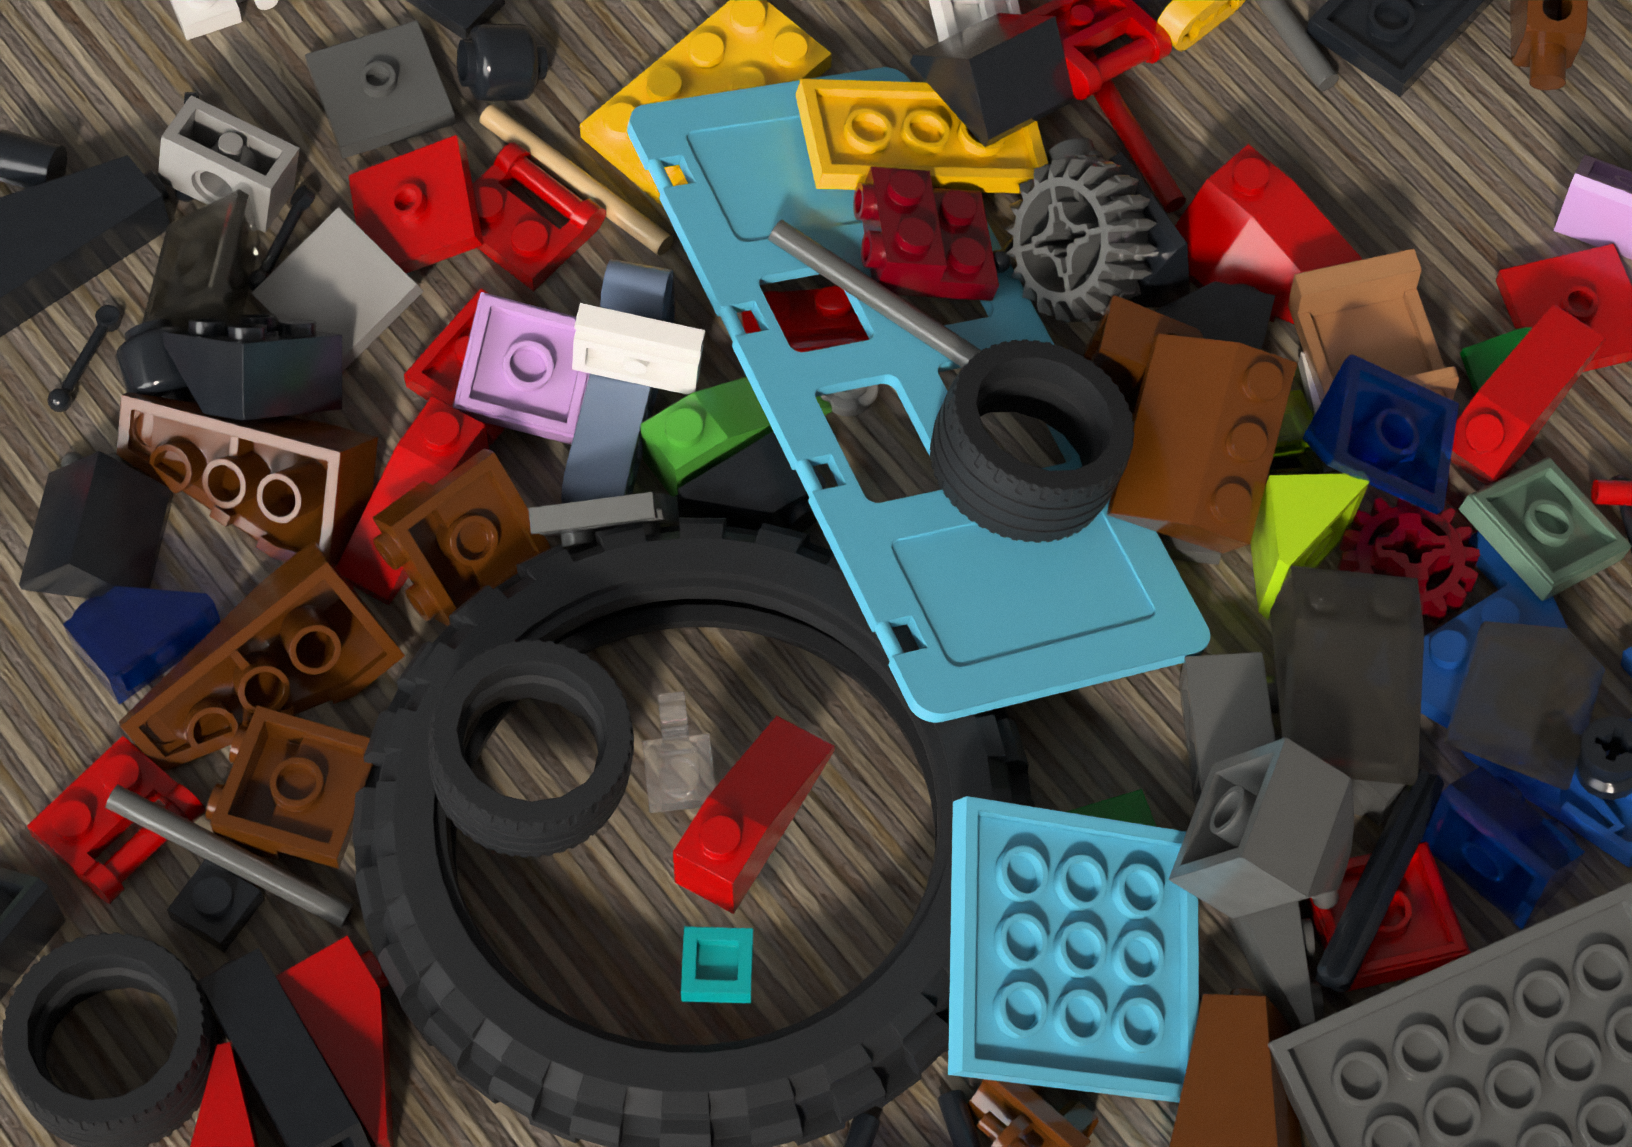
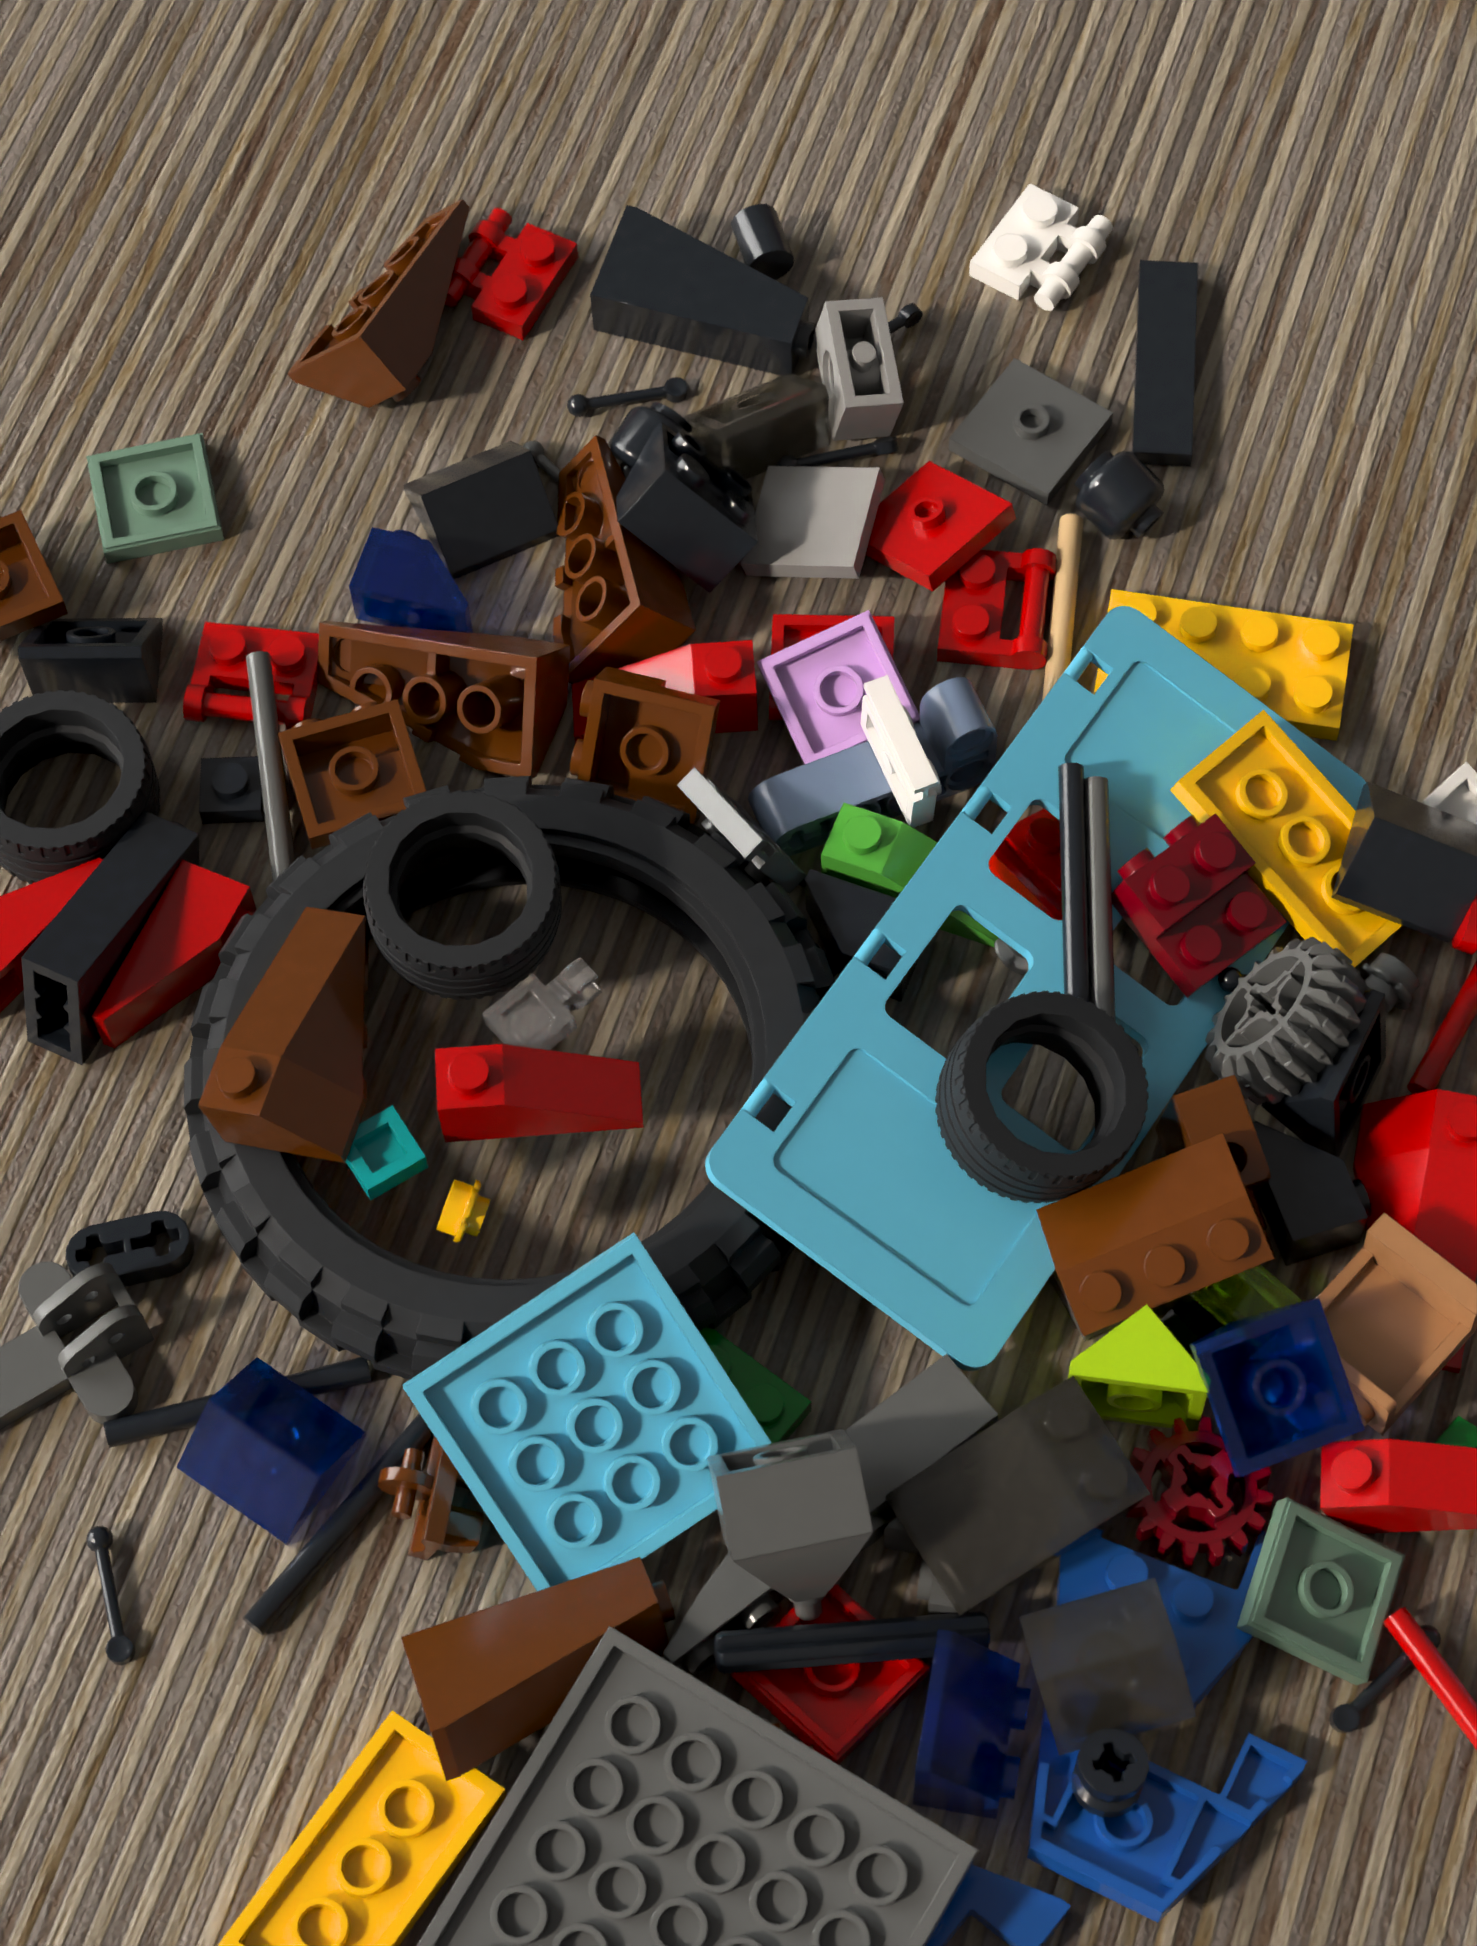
camera: 60 degrees right, 0 degrees up
(582, 967) = (296, 1051): none -> reddish brown wedge
(818, 932) = (463, 1210): none -> yellow plate
(855, 304) = (1074, 880): none -> black bar

